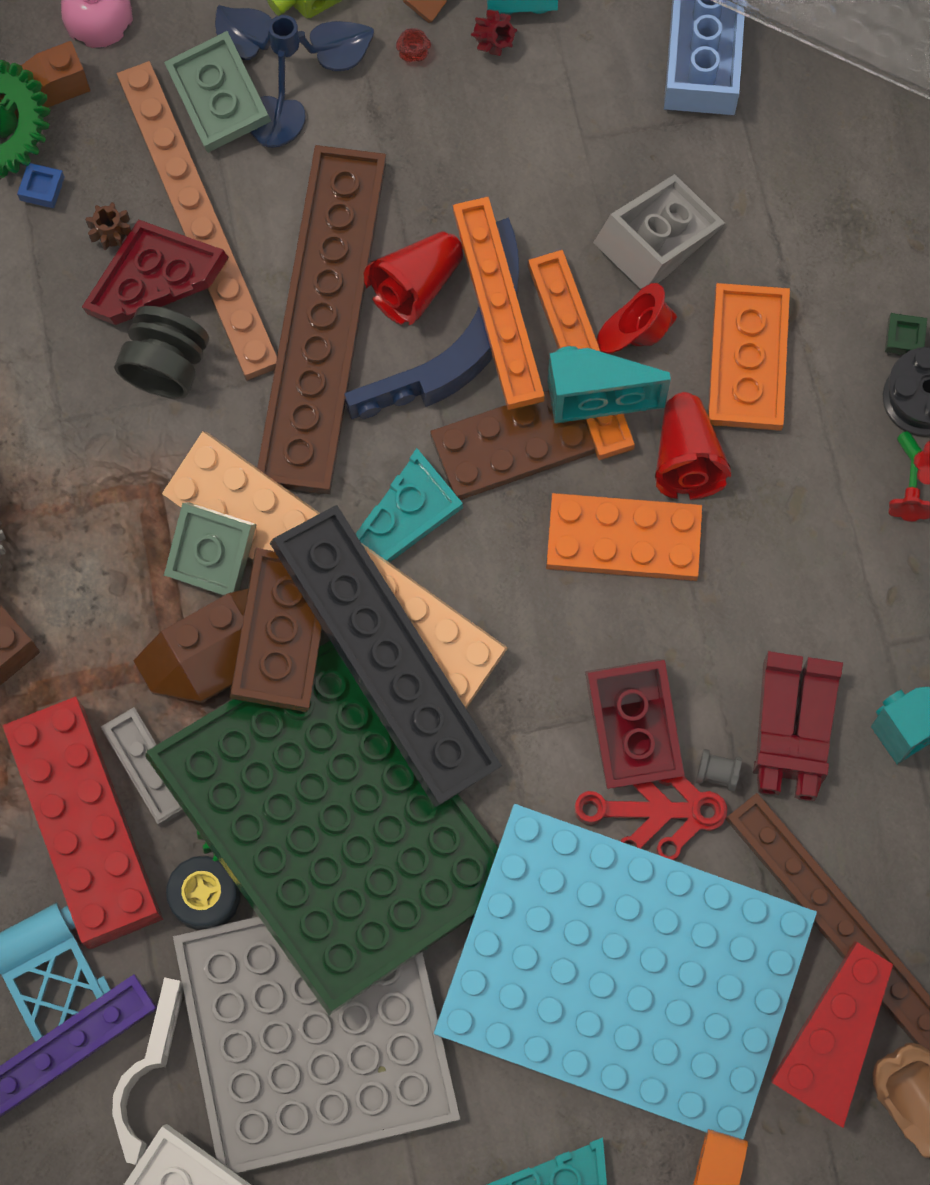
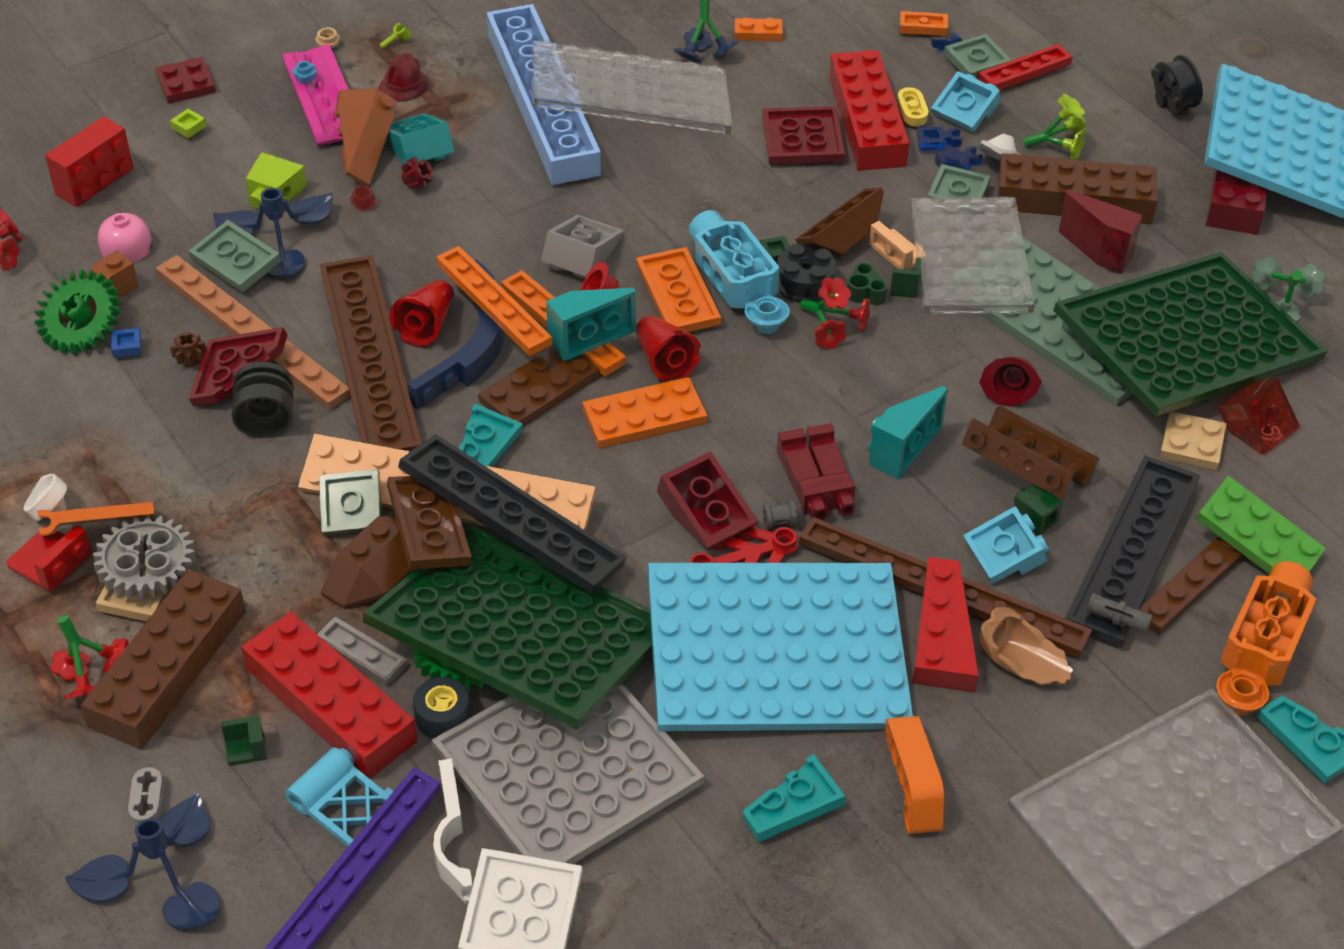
camera: 25 degrees left, 25 degrees down
(839, 357) = (739, 269): none -> medium azure brick

